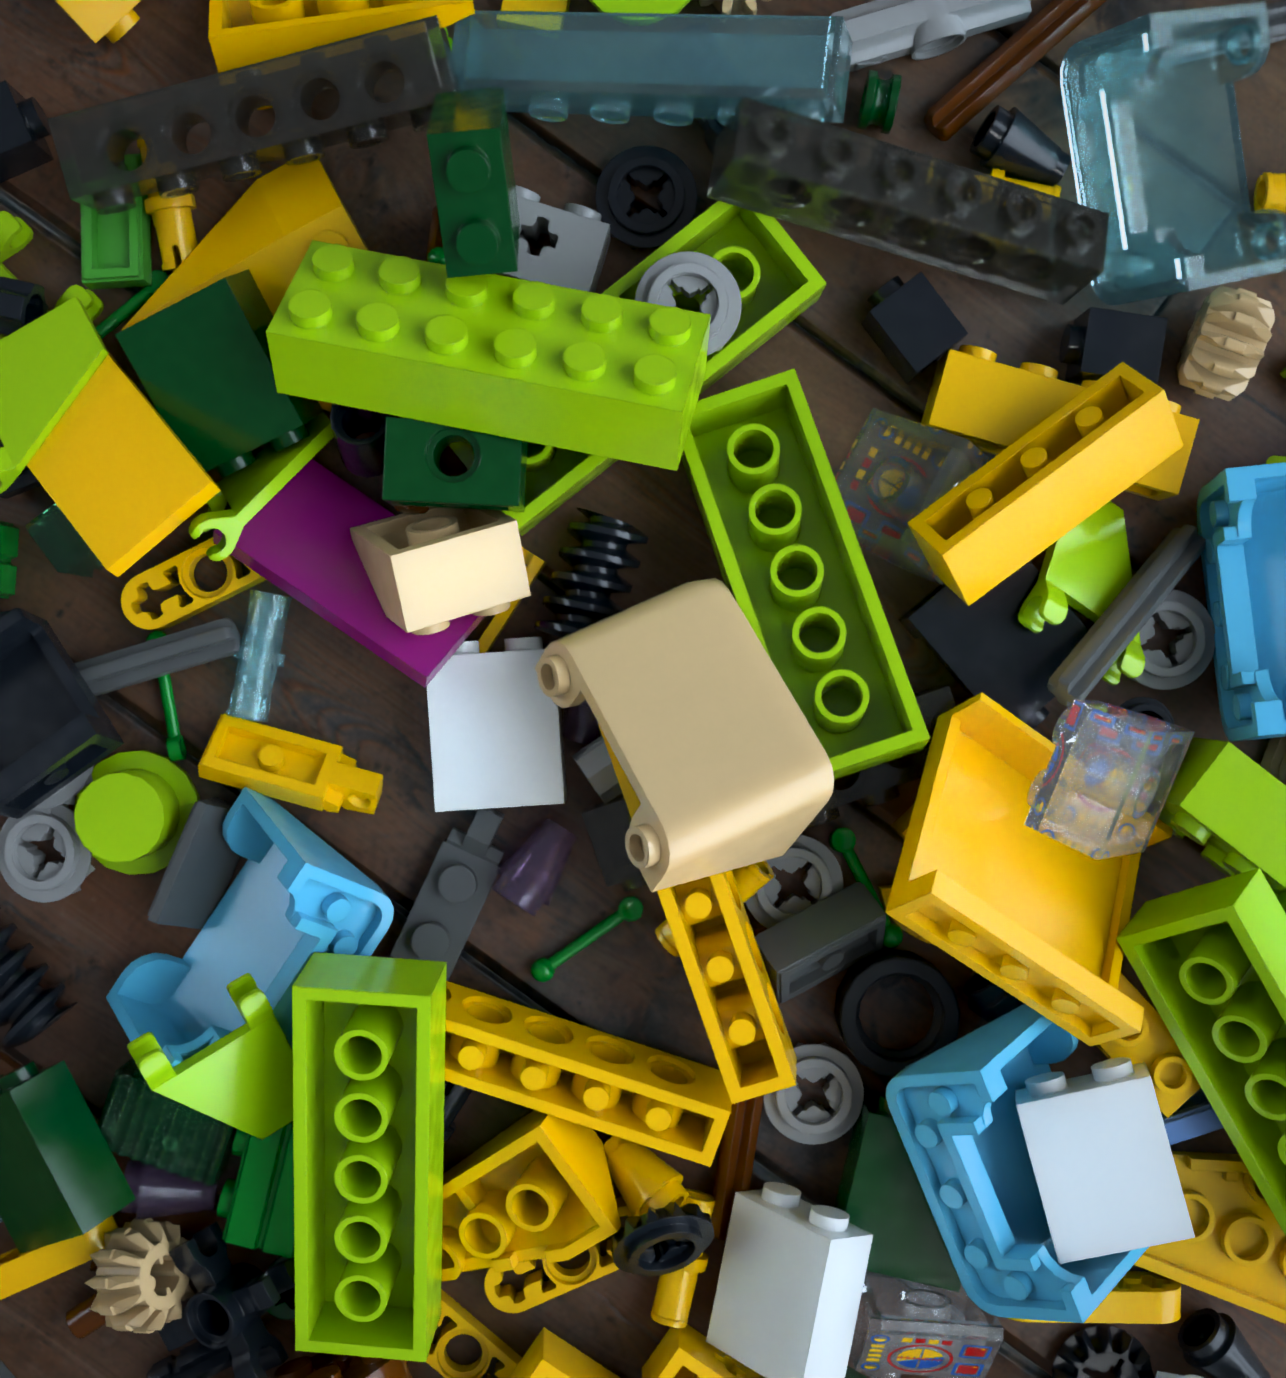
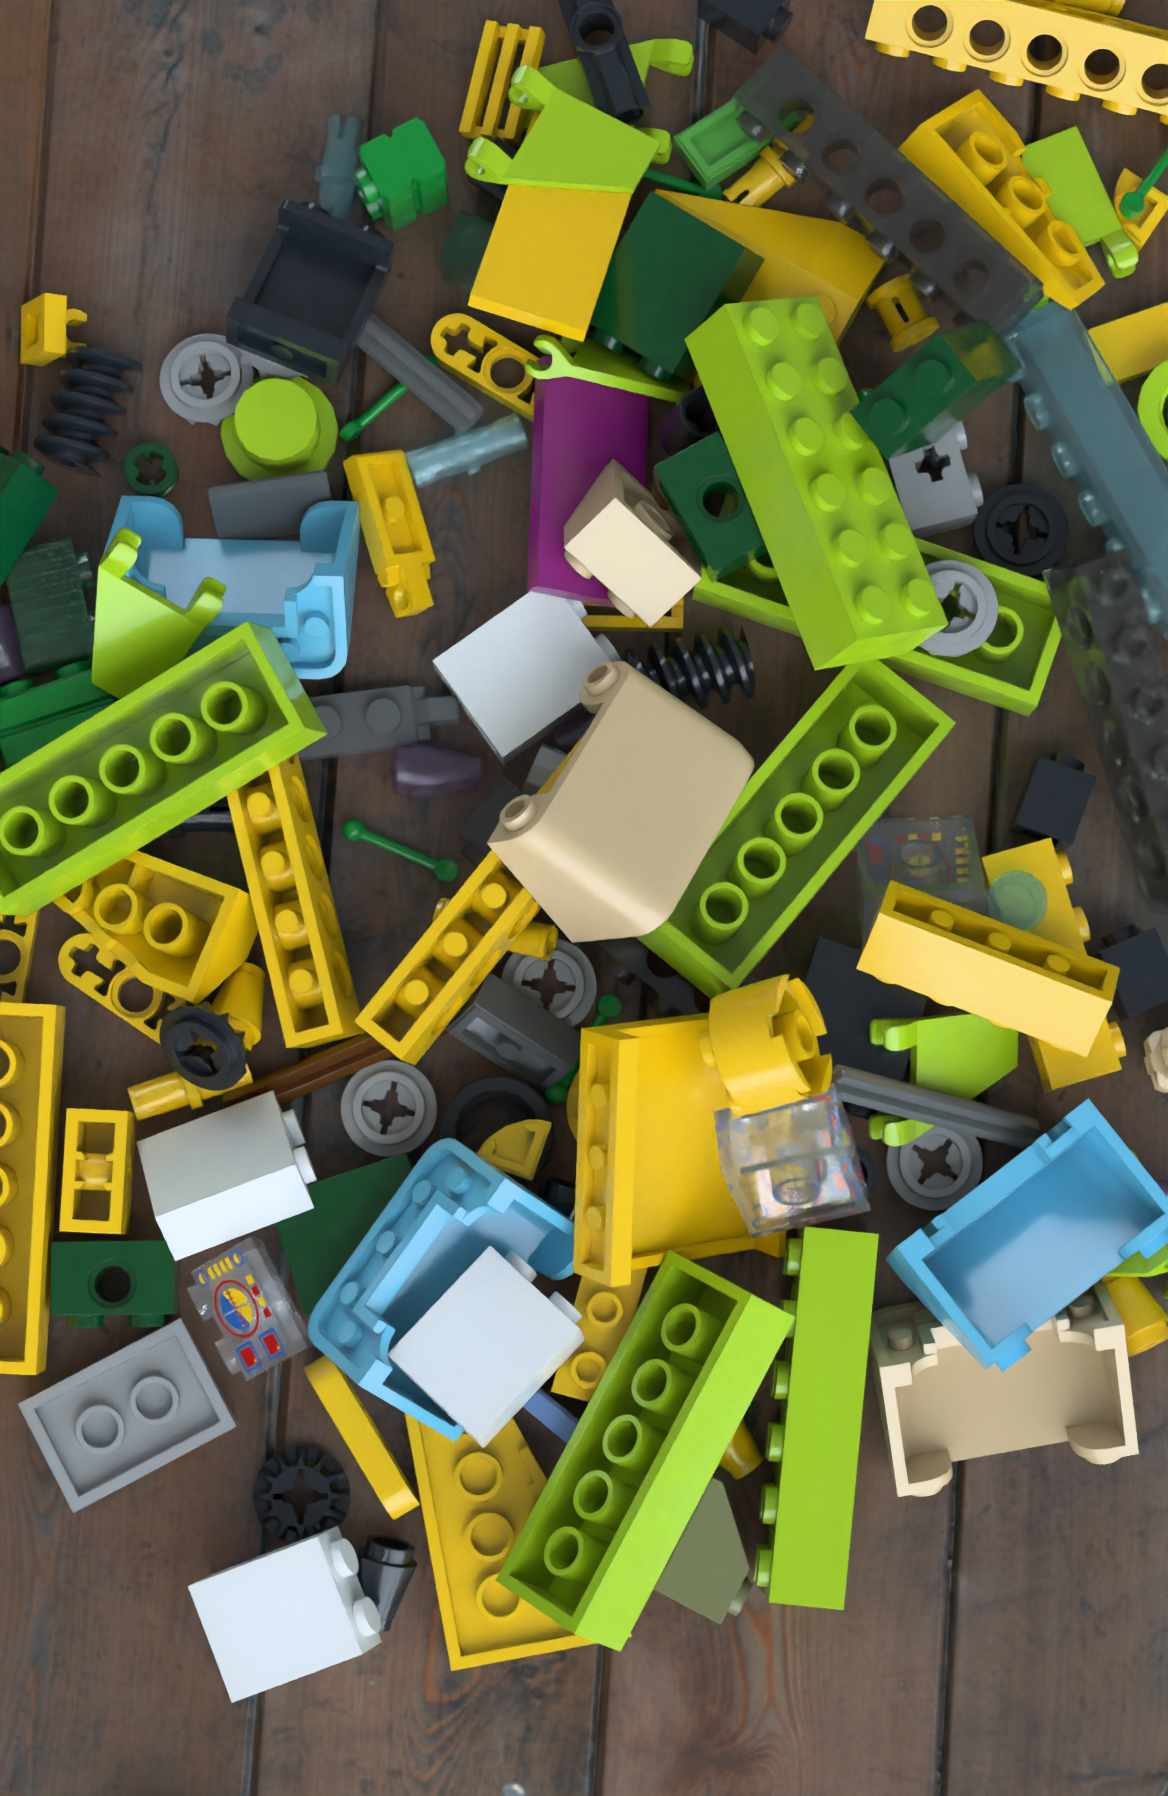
camera: 55 degrees right, 5 degrees down
(98, 970) = (168, 466): none -> dark green bush
(357, 165) = (919, 324): none -> yellow bush
(927, 1012) = (517, 1147): none -> yellow tile
(993, 418) = (1017, 900): none -> clear light blue tile
(1005, 742) = (767, 1045): none -> yellow brick

